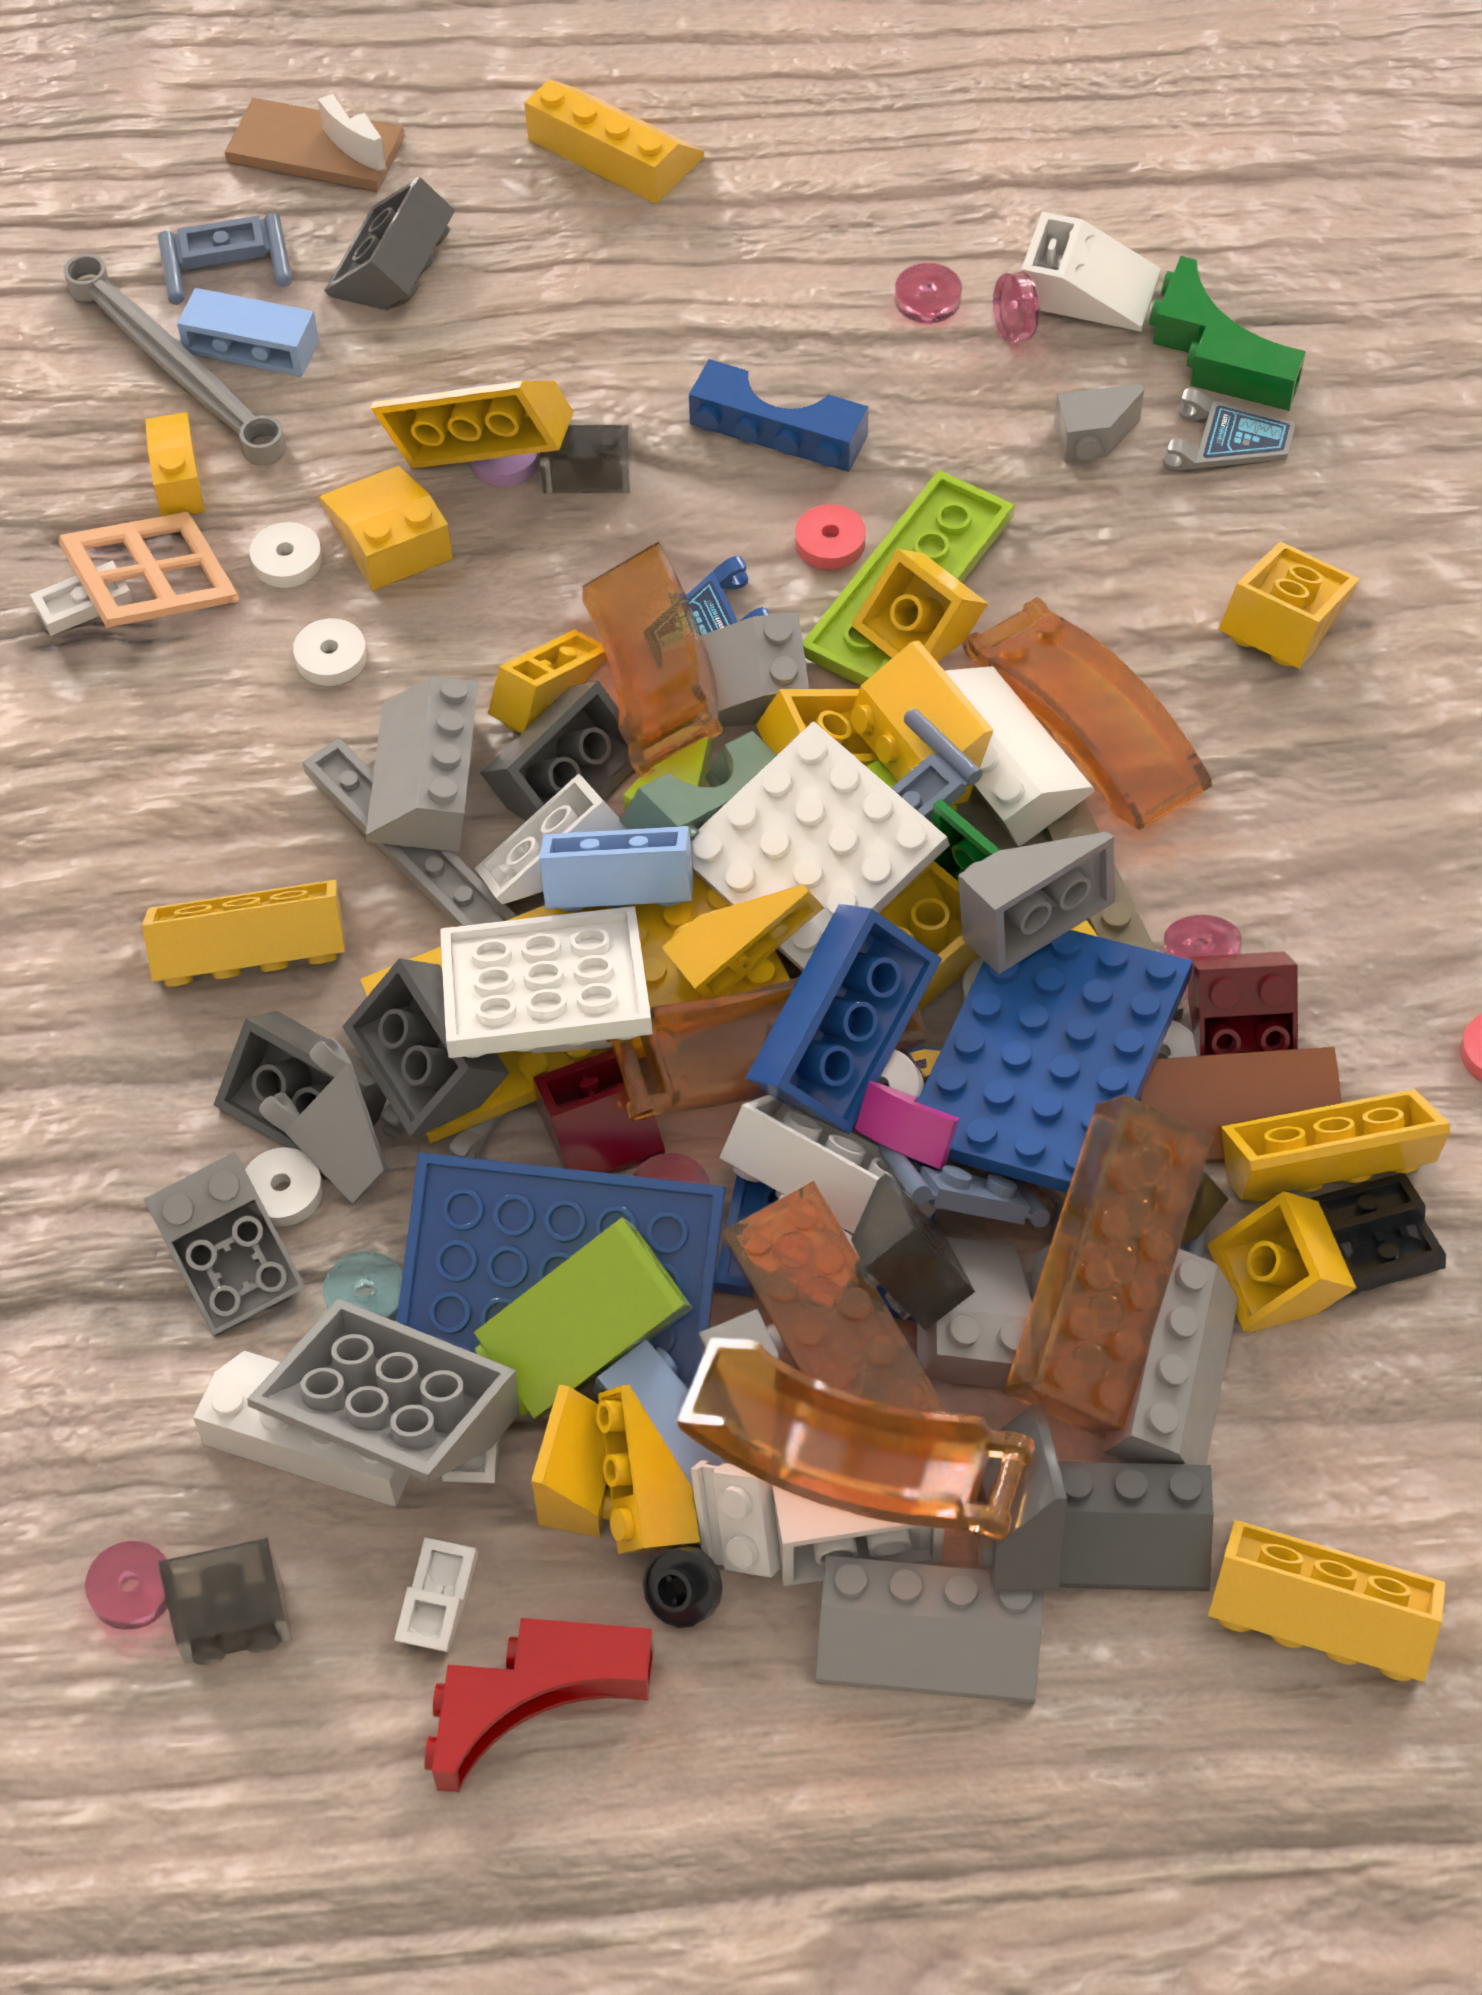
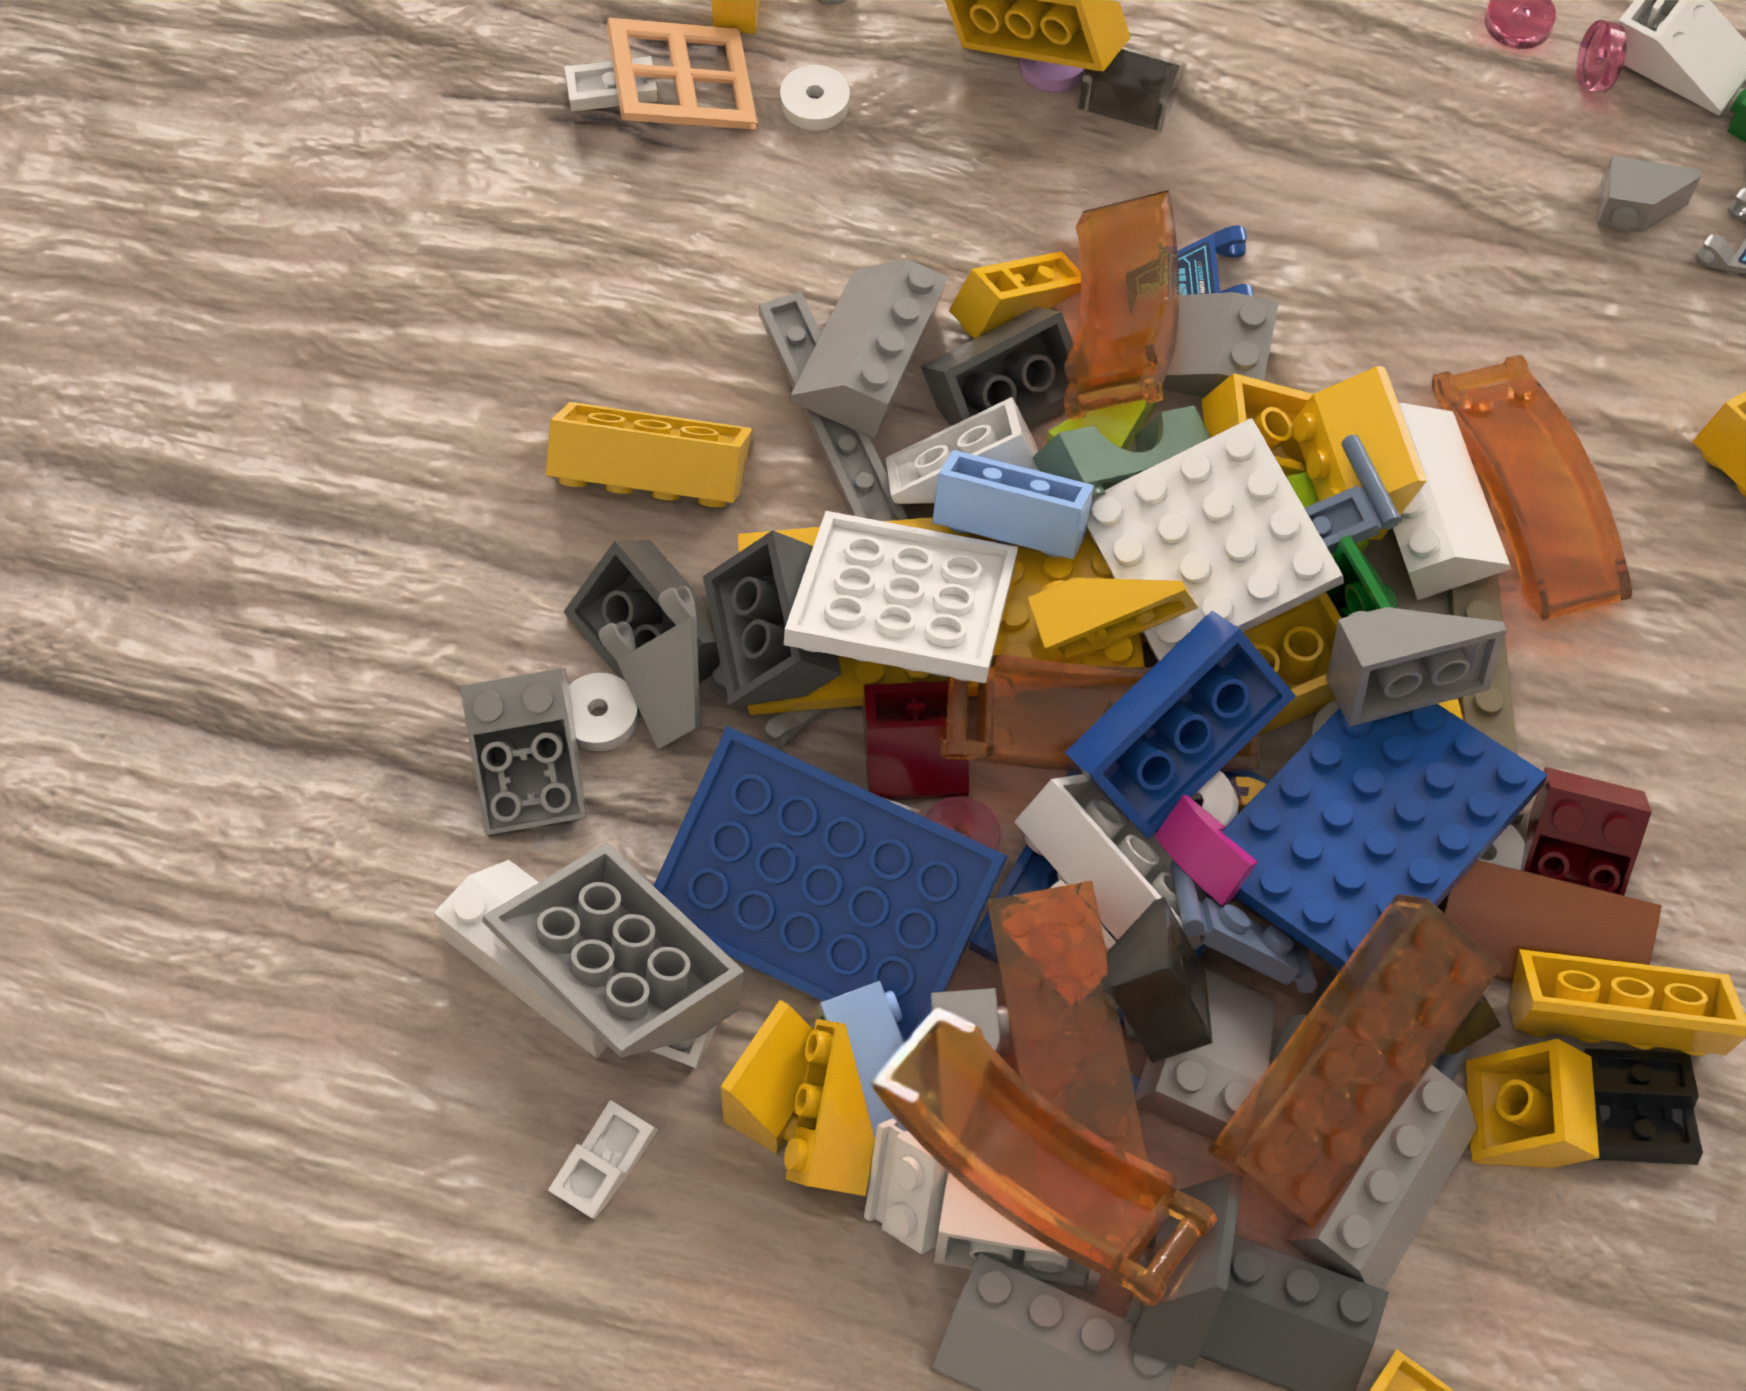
camera: 15 degrees right, 5 degrees up
(111, 1570) = (332, 1073): clear pink piece -> none
(226, 1601) = (403, 1102): clear smoke slope -> none
(326, 636) = (823, 221): white piece -> none
(362, 1271) = (635, 819): clear light blue piece -> none
(389, 526) = (920, 98): yellow slope -> none
(544, 1669) = (681, 1270): red arch -> none
(583, 1317) = (828, 939): lime slope -> none
(682, 1586) = (835, 1233): black plate -> none
(823, 432) = (1368, 127): blue arch -> none
(826, 552) = (1343, 217): coral piece -> none
(920, 603) = (1399, 329): yellow slope -> none
(945, 522) = (1401, 297): lime plate -> none
(1202, 937) = (1566, 749): clear pink piece -> none

